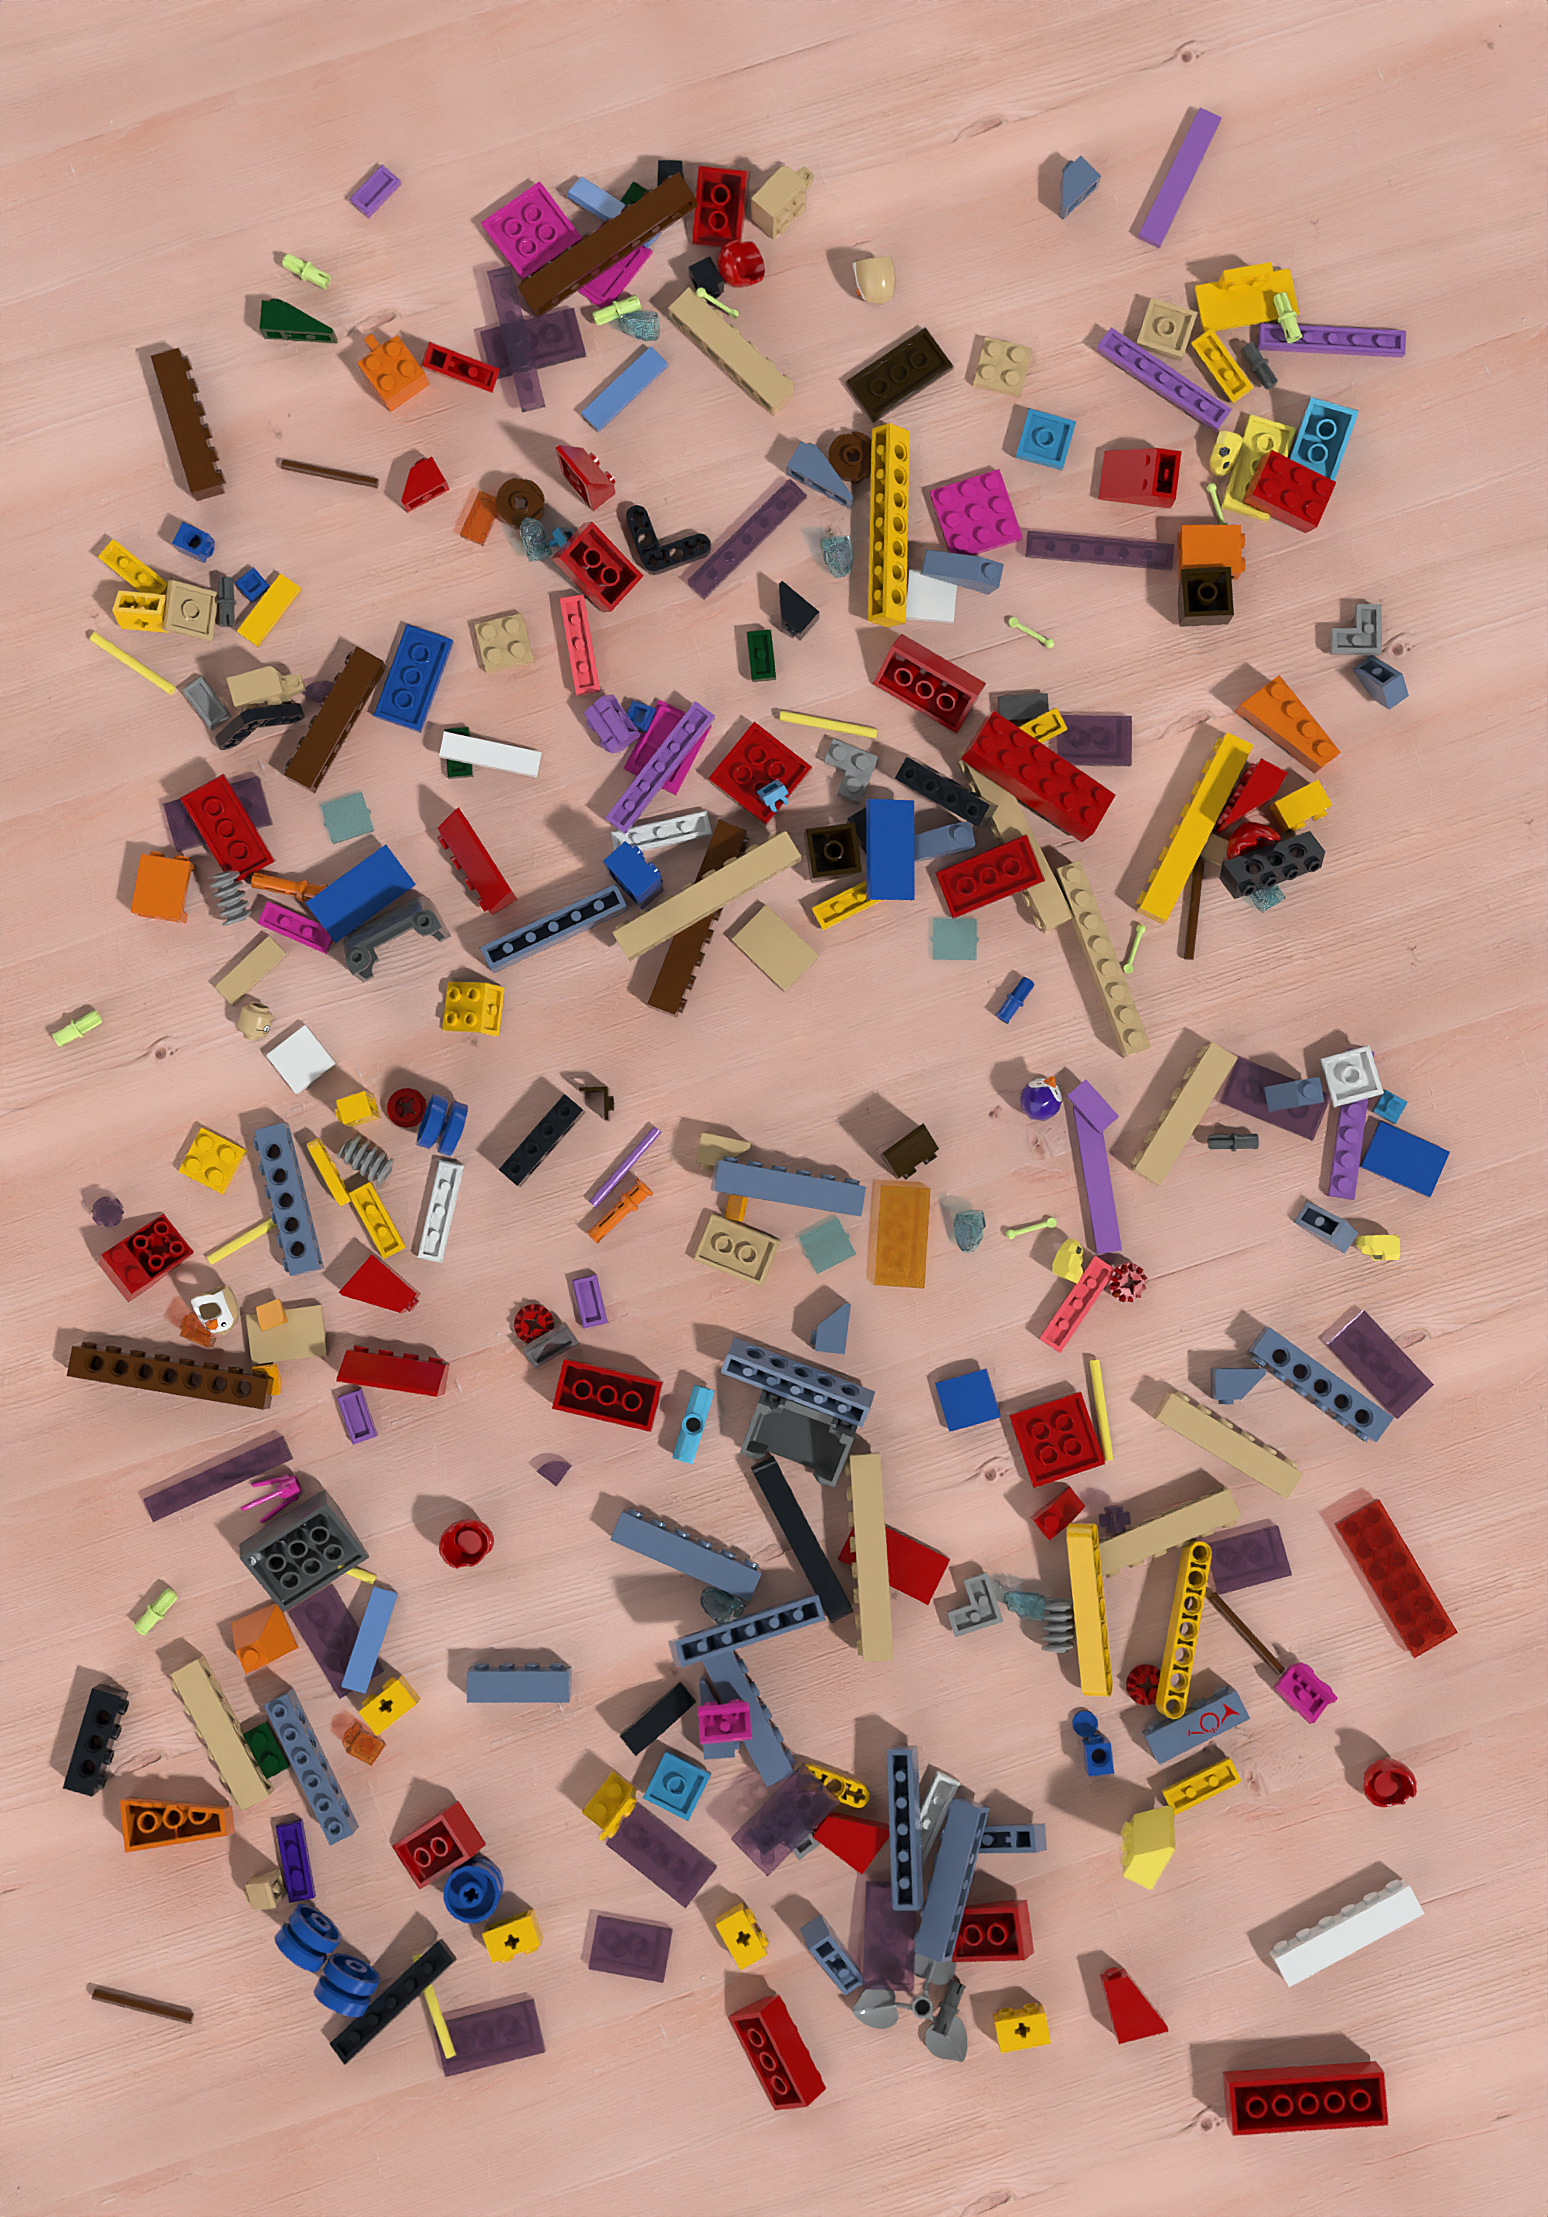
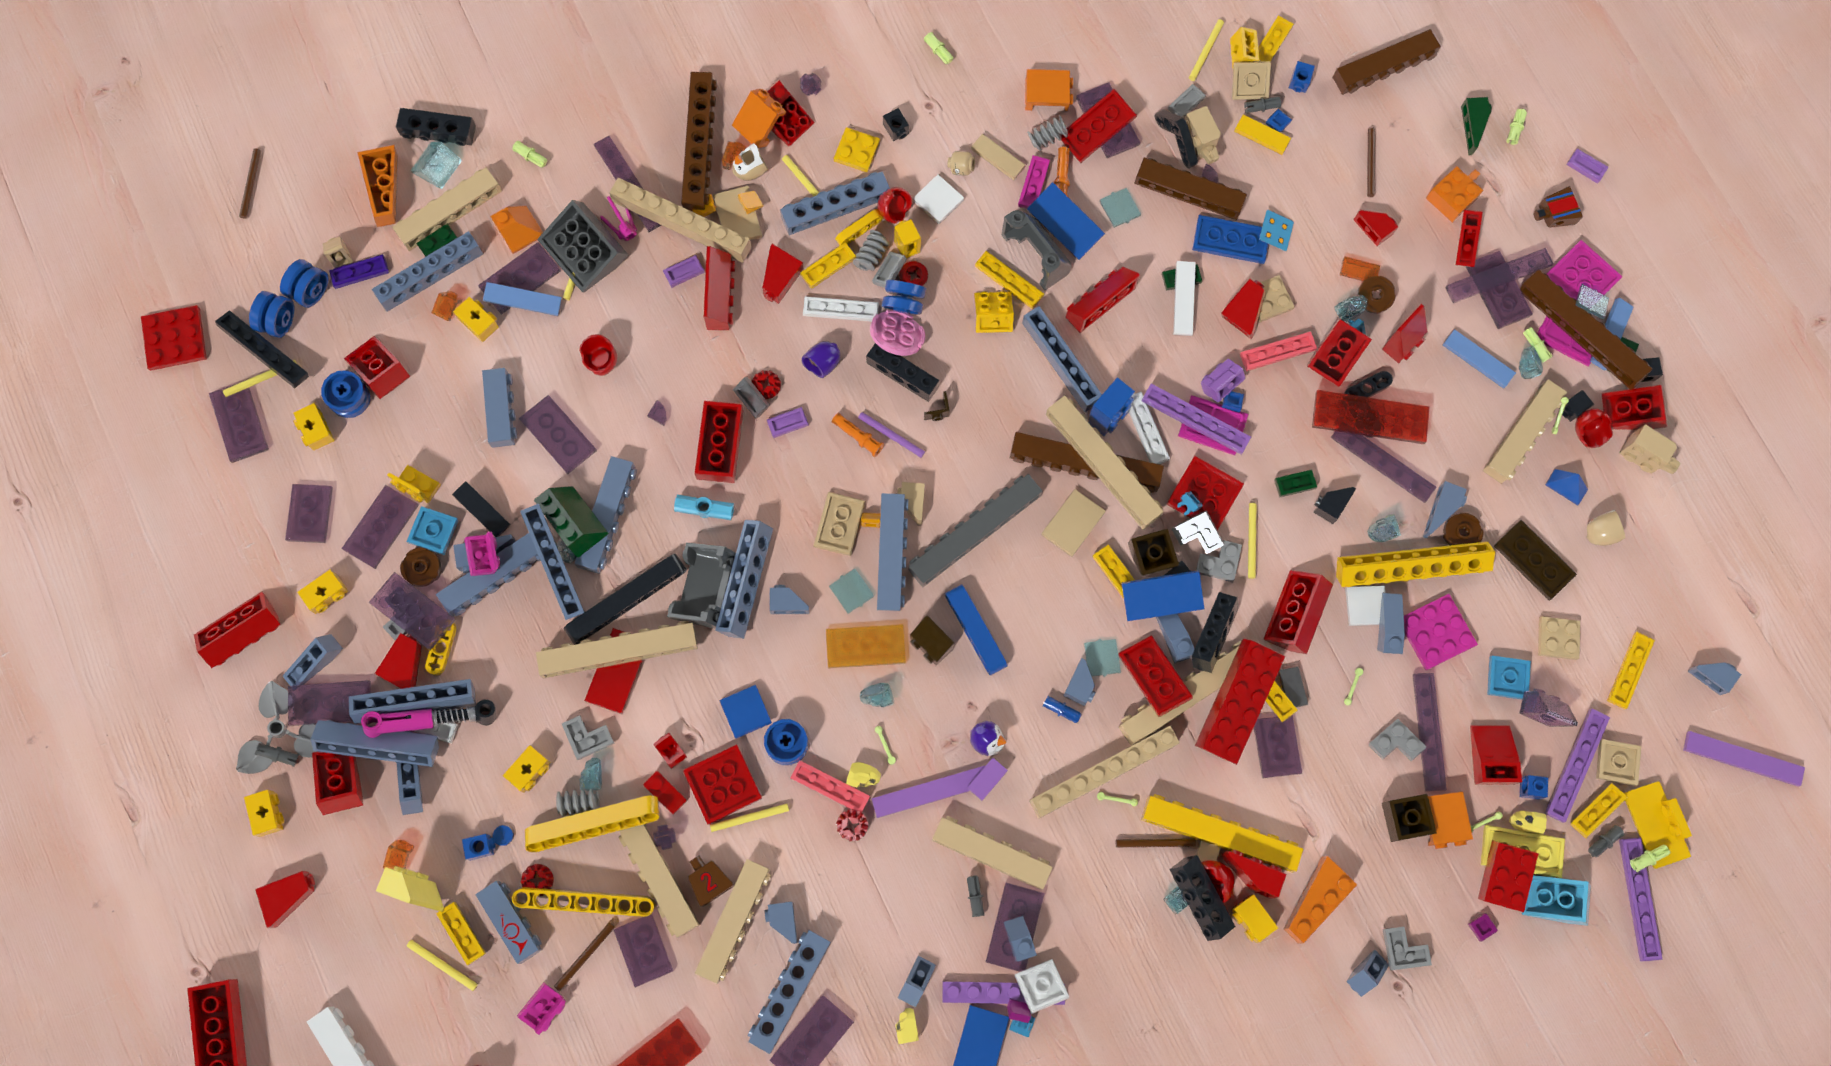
camera: 75 degrees right, 10 degrees down
(151, 1289) = (758, 117): none -> orange panel
(152, 1743) = (436, 164): none -> clear light blue slope
(174, 1102) = (896, 118): none -> black brick
(286, 1414) = (679, 219): none -> tan brick
(304, 1121) = (894, 204): none -> red piece
(357, 2122) = (173, 338): none -> red plate
(394, 1139) = (889, 268): none -> light grey tile
(410, 616) = (1276, 230): none -> dark azure sticker
(430, 981) = (1009, 279): none -> yellow tile
(433, 241) = (1559, 209): none -> reddish brown torso
(490, 1140) = (897, 333): none -> bright pink tile
(510, 1244) = (824, 355): none -> dark purple piece
(516, 676) = (1245, 308): none -> red slope
(565, 1608) = (558, 434): none -> clear purple tile
(571, 227) = (1592, 301): none -> clear light blue piece
(688, 543) = (1370, 417): none -> clear red plate
(690, 1600) = (571, 518): none -> dark green slope
(715, 1816) = (411, 562): none -> reddish brown plate
(770, 1075) = (975, 530): none -> dark grey brick
(805, 788) = (1201, 527): none -> plate
(808, 314) = (1568, 485): none -> blue slope
(900, 1093) = (976, 630): none -> blue beam
(930, 1812) = (425, 718): none -> piece
(987, 971) = (1081, 685): none -> sand blue slope
(1006, 1501) = (670, 750): none -> red bracket
(1014, 1699) = (517, 774): none -> yellow brick
(1030, 1355) = (786, 730): none -> blue wheel
(1053, 288) = (1630, 670): none -> yellow tile
(1093, 400) = (1546, 709): none -> slope
(1096, 1859) = (398, 854): none -> clear orange bracket
(1101, 590) = (1399, 737): none -> light grey plate
(1175, 1469) = (708, 881): none -> reddish brown torso
(1185, 437) = (1534, 787): none -> blue brick
(1236, 1812) = (442, 965): none -> light yellow bar
(1342, 534) = (1482, 927): none -> magenta tile
(1378, 1108) = (1018, 1011): none -> magenta tile

